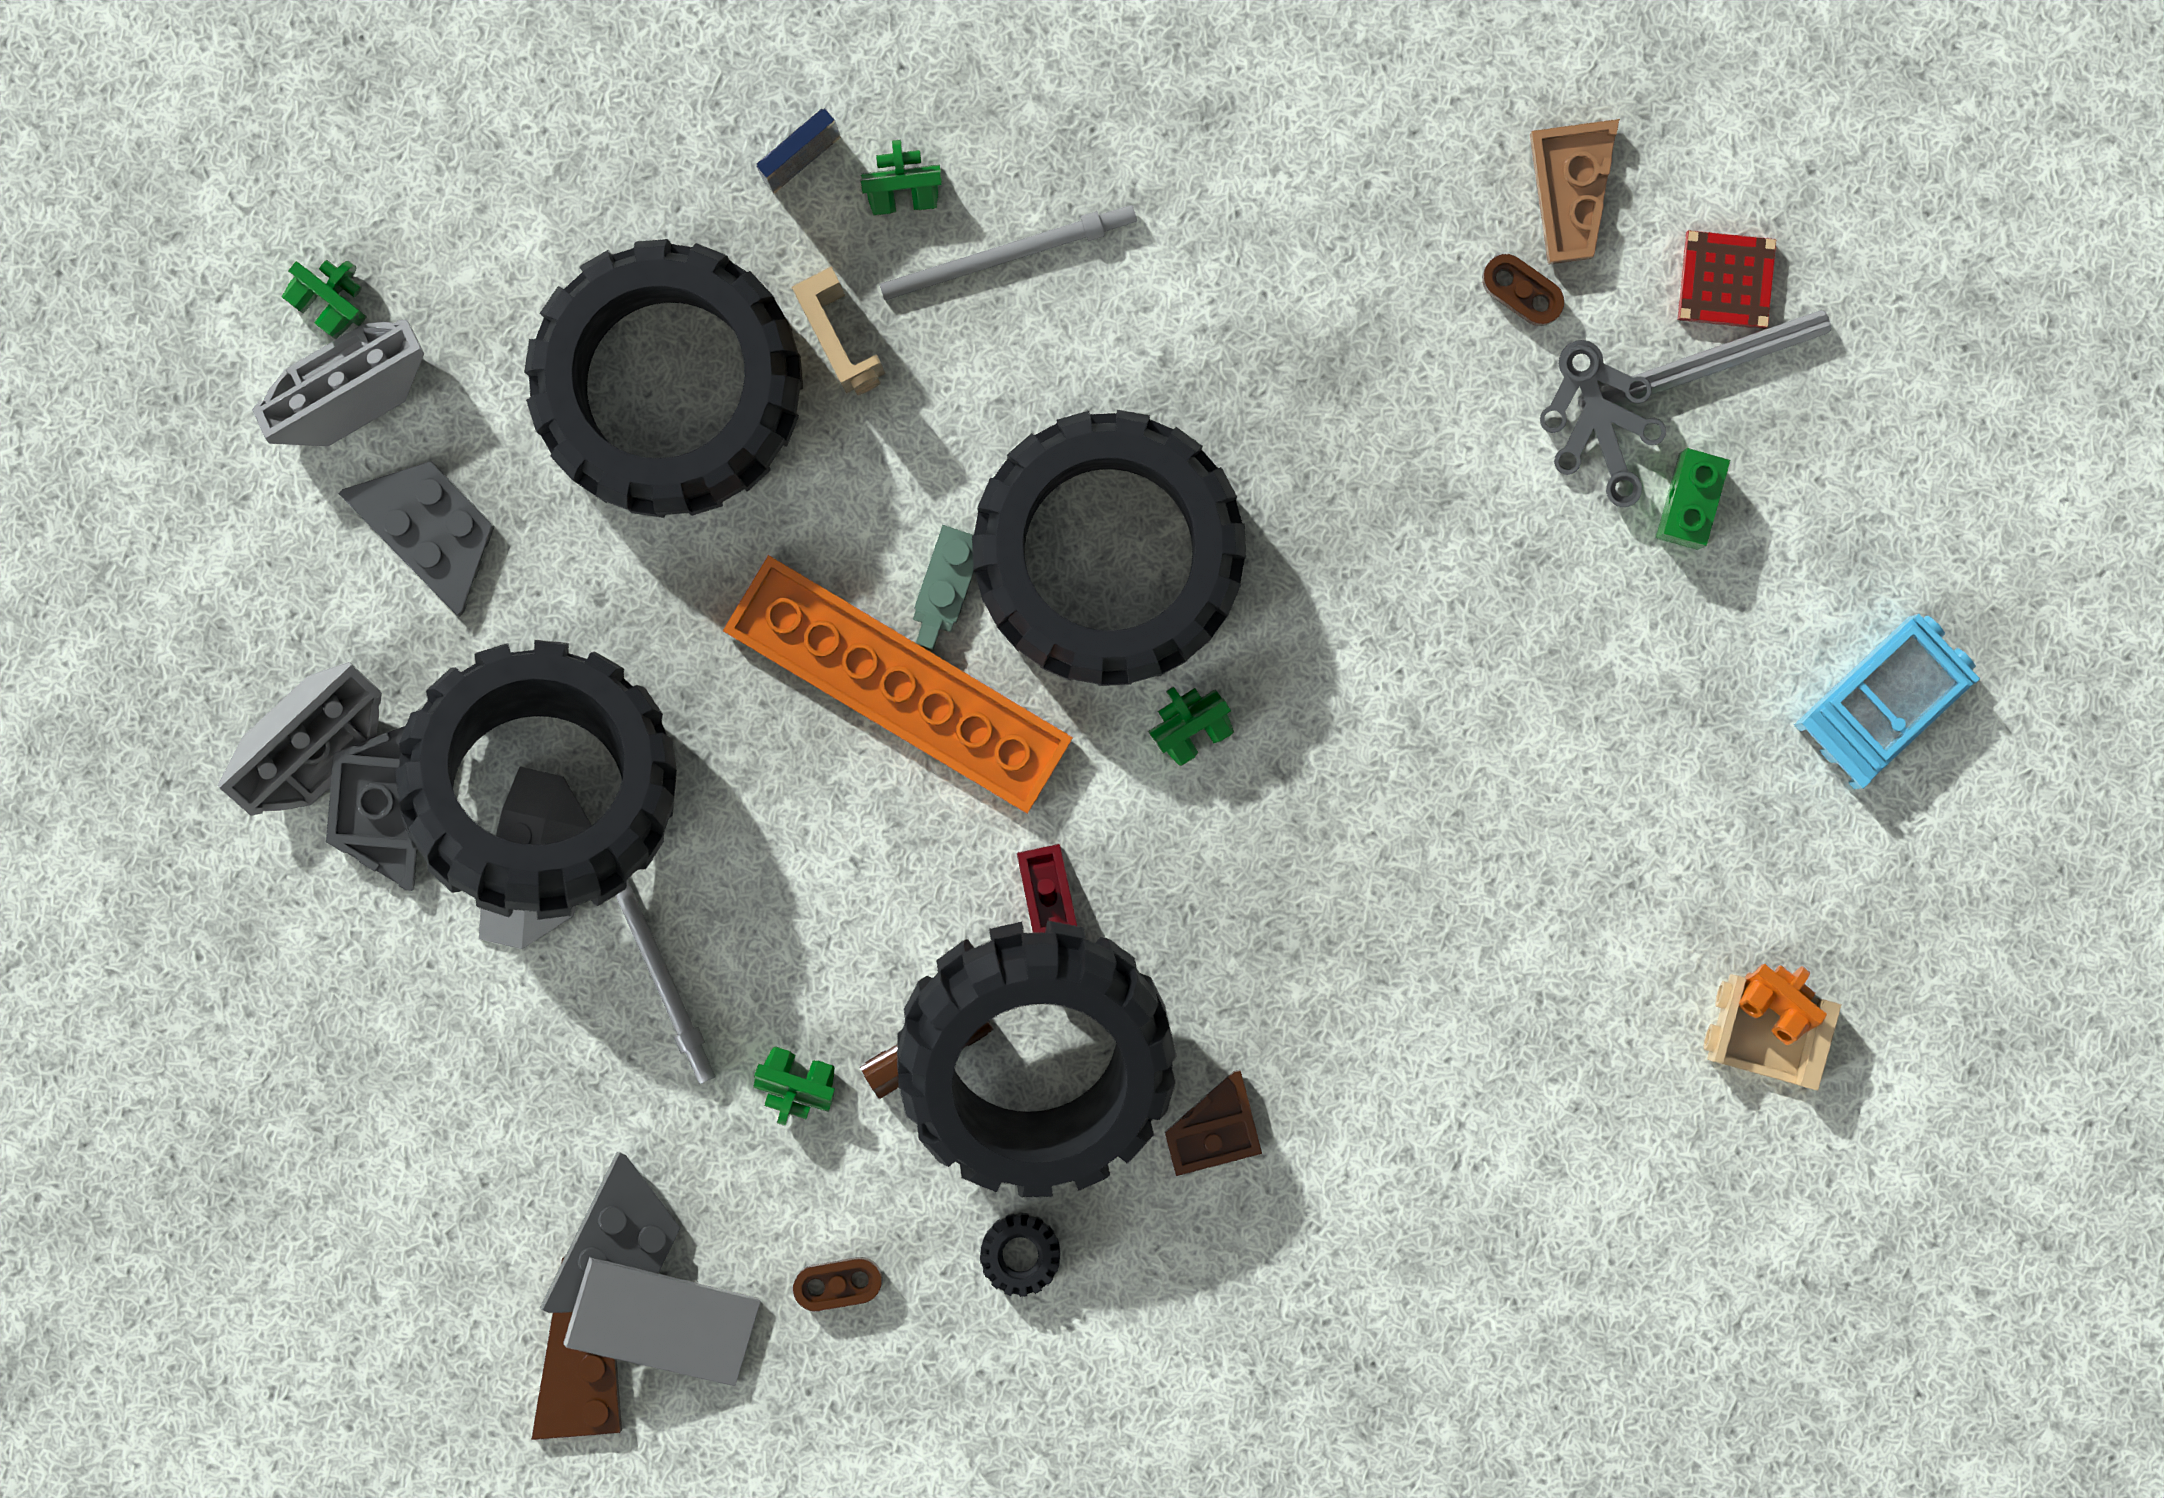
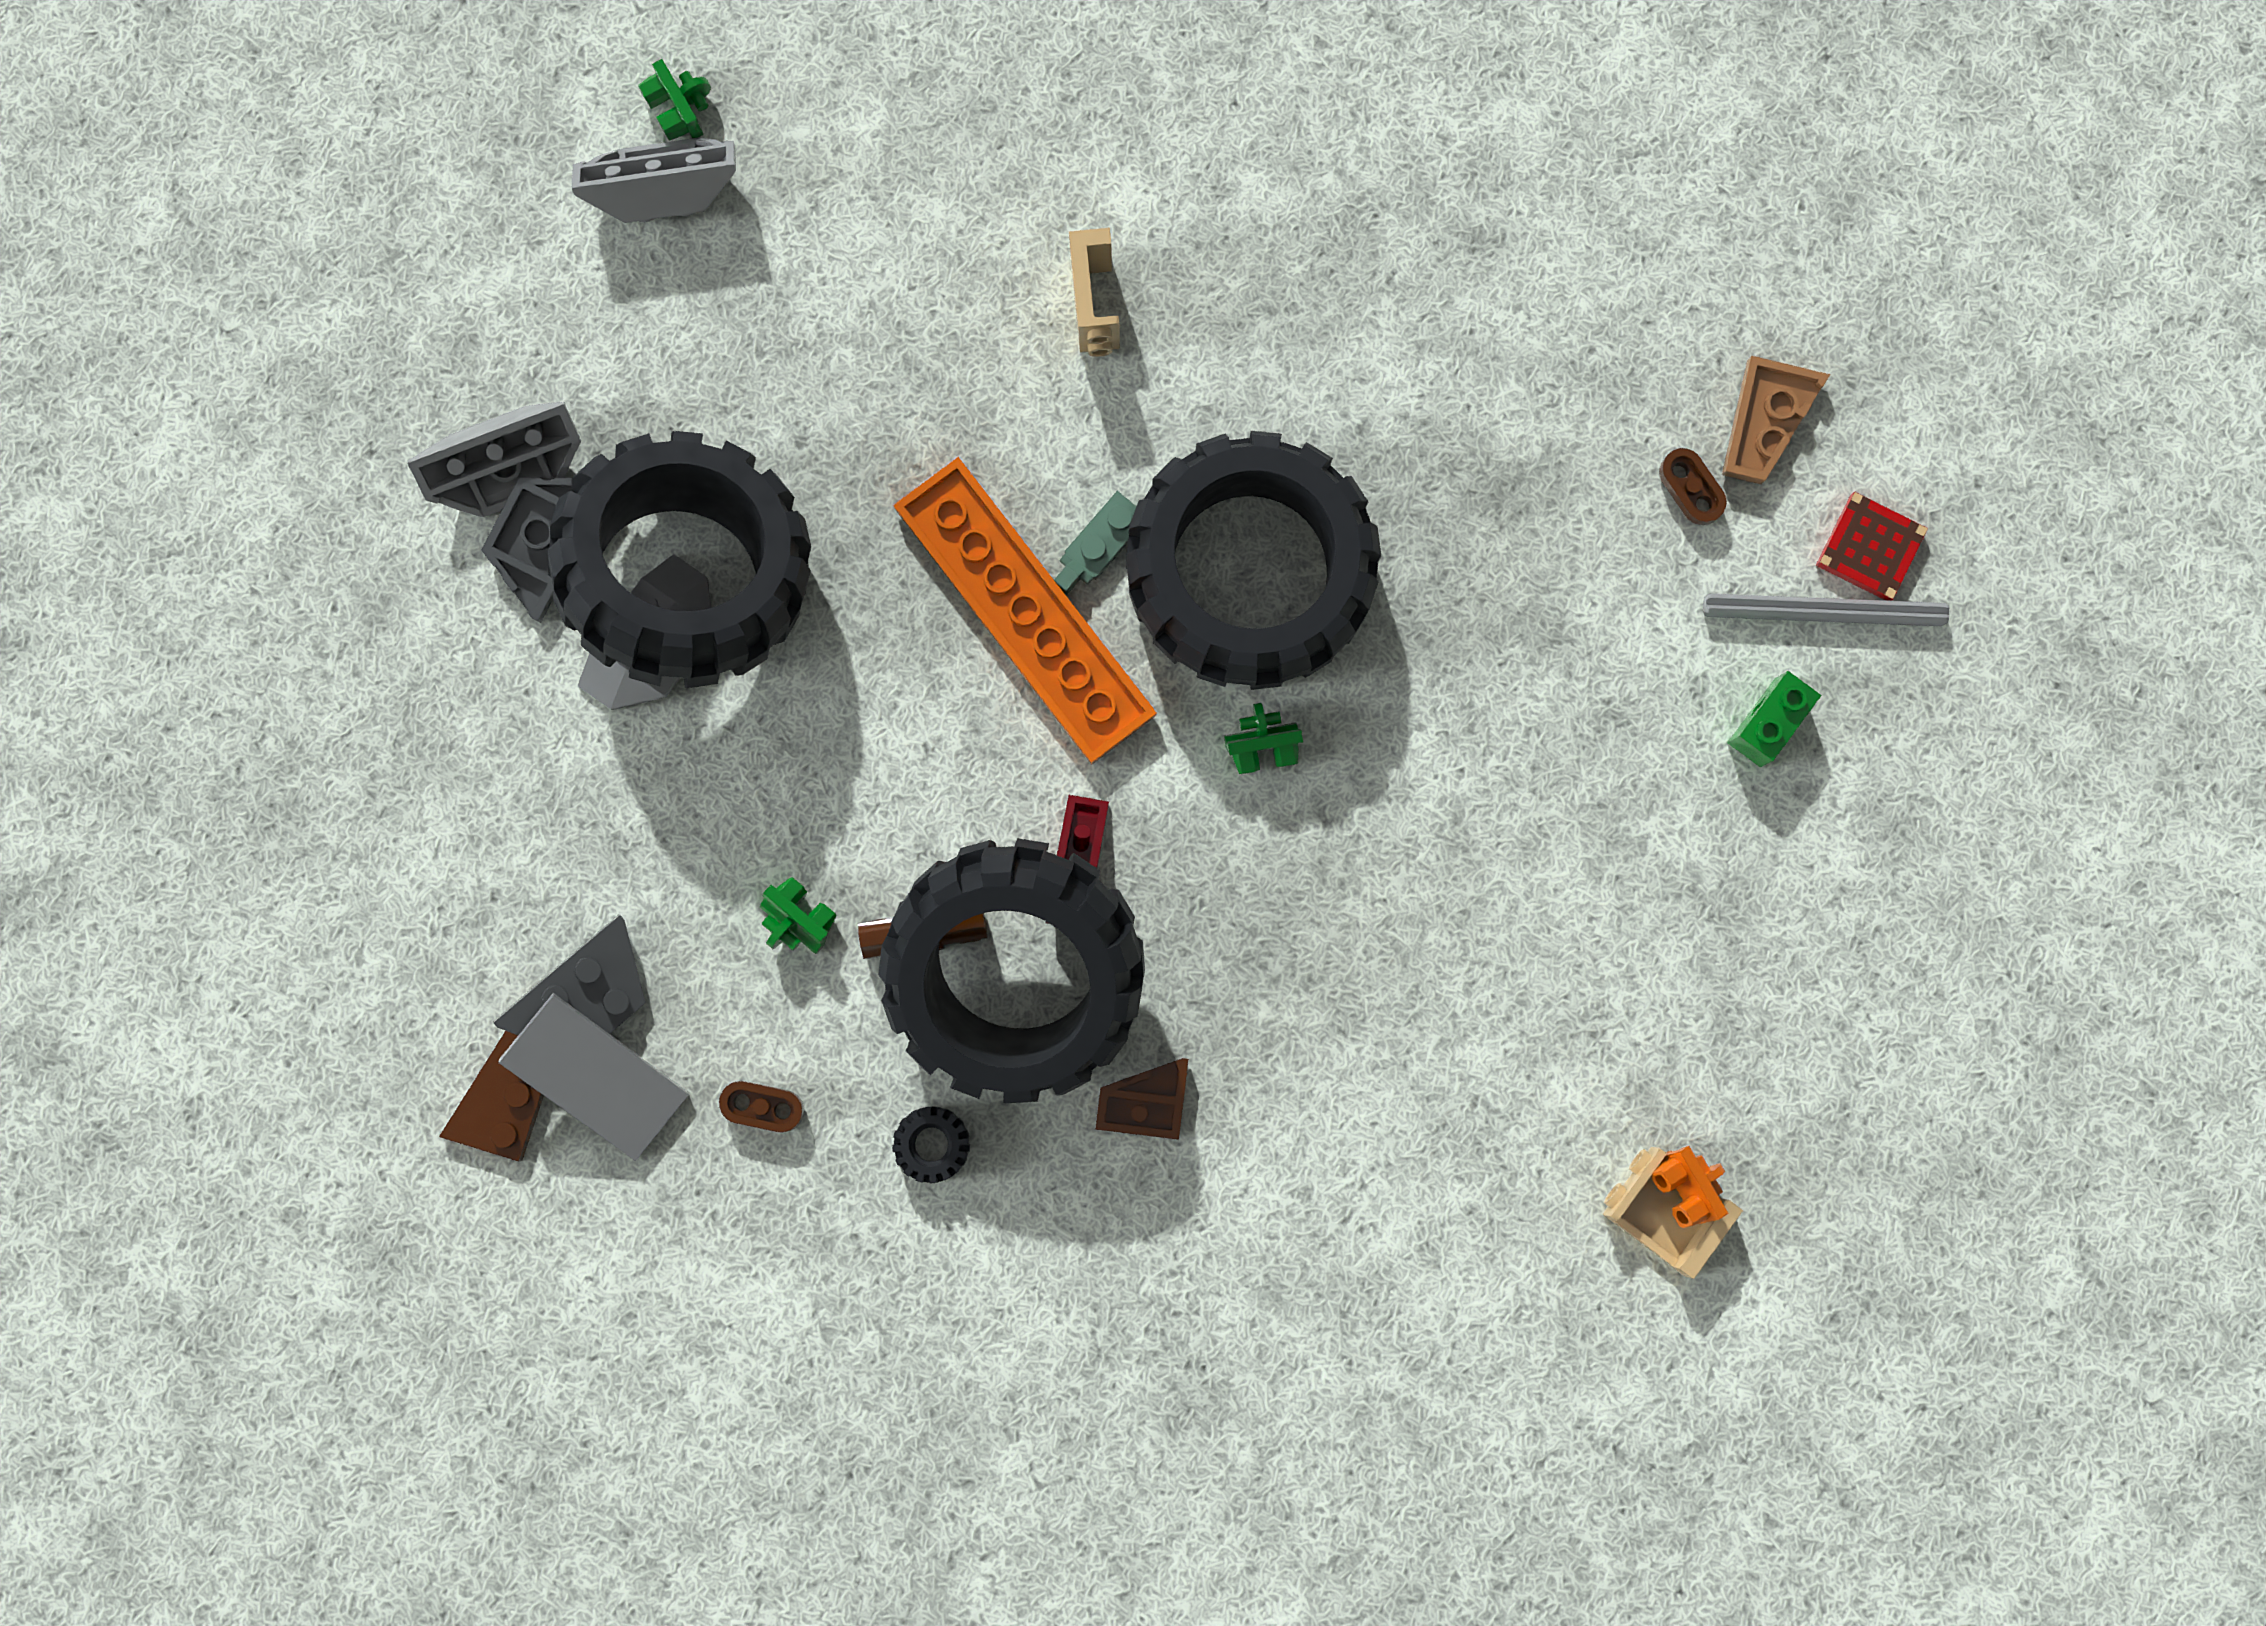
camera: 20 degrees right, 5 degrees down
(427, 527) = (680, 324): dark grey wing -> none
(597, 300) = (912, 188): black tyre -> none
(689, 1038) = (720, 842): light grey bar -> none
(798, 150) = (1121, 129): dark blue tile -> none
(921, 180) = (1178, 192): green hips -> none
(1090, 226) = (1342, 293): light grey bar -> none
(1598, 415) = (1719, 616): dark grey plant -> none
(1889, 699) = (1883, 959): medium azure door -> none

